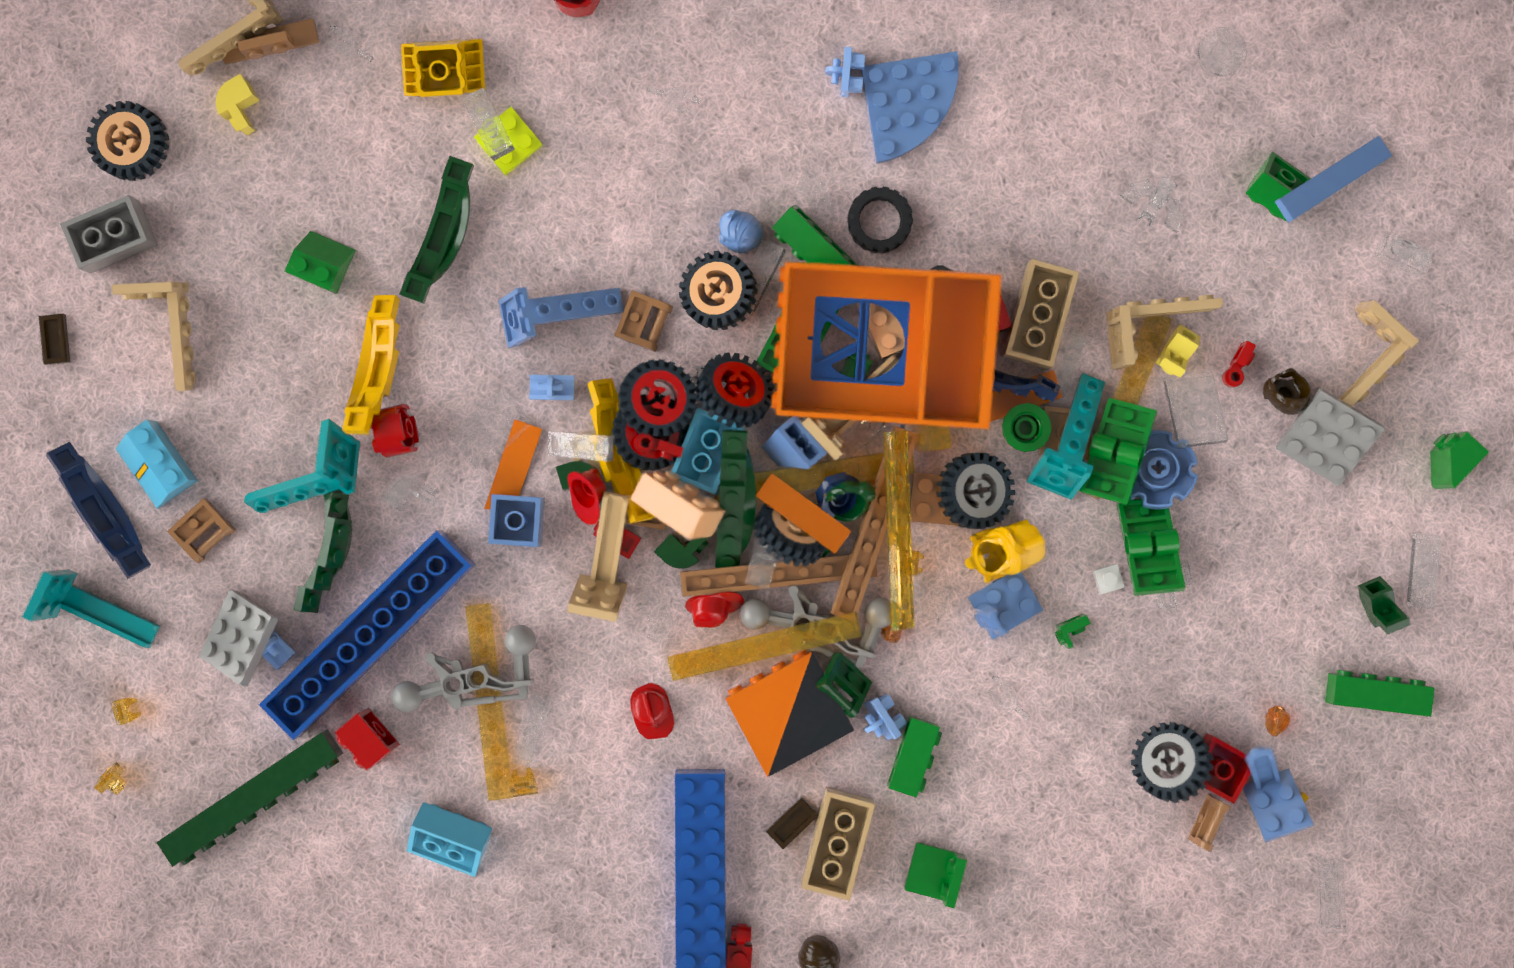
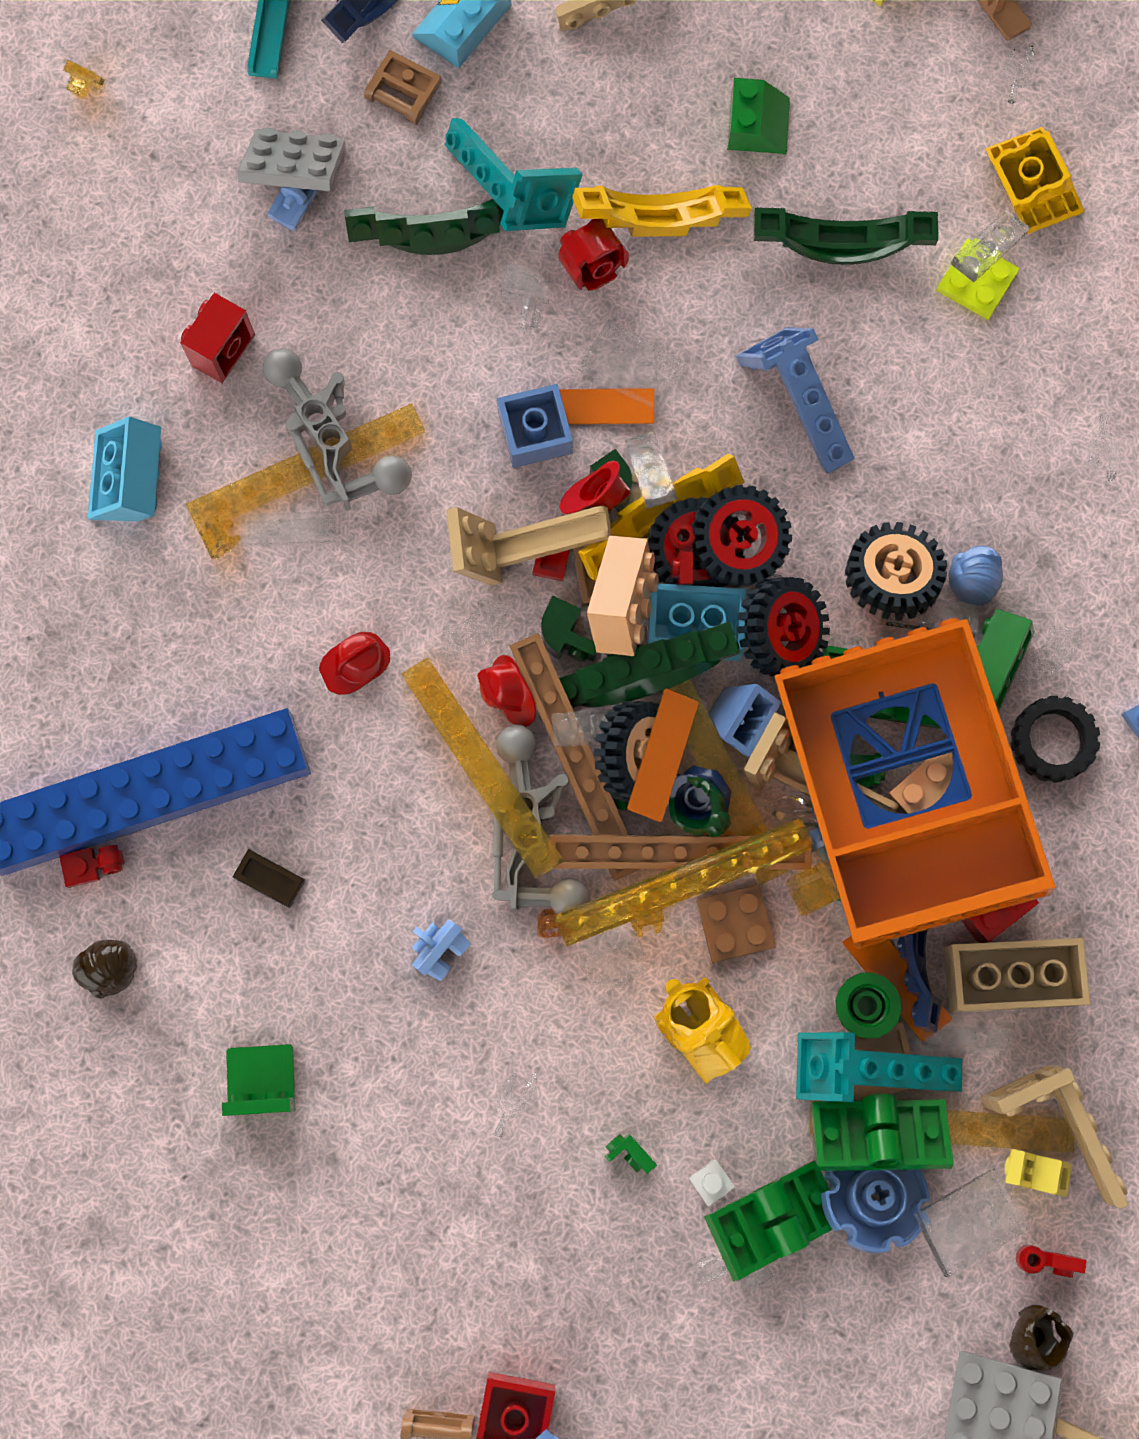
camera: 70 degrees right, 10 degrees down
(121, 712) = (170, 62): clear yellow tile -> none
(249, 798) = (106, 233): dark green brick -> none
(367, 634) = (343, 301): blue brick -> none
(552, 387) = (708, 417): light blue hips -> none
(635, 319) = (825, 488): medium nougat plate -> none
(787, 713) = (406, 826): panel -> none
(837, 843) = (260, 940): tan brick -> none
(850, 679) = (473, 887): dark green plate -> none
(914, 757) = (401, 1003): green brick -> none
(985, 506) = (793, 953): wheel -> none
(1004, 604) = (633, 1056): medium blue bracket -> none
(1191, 766) = (505, 1369): wheel -> none

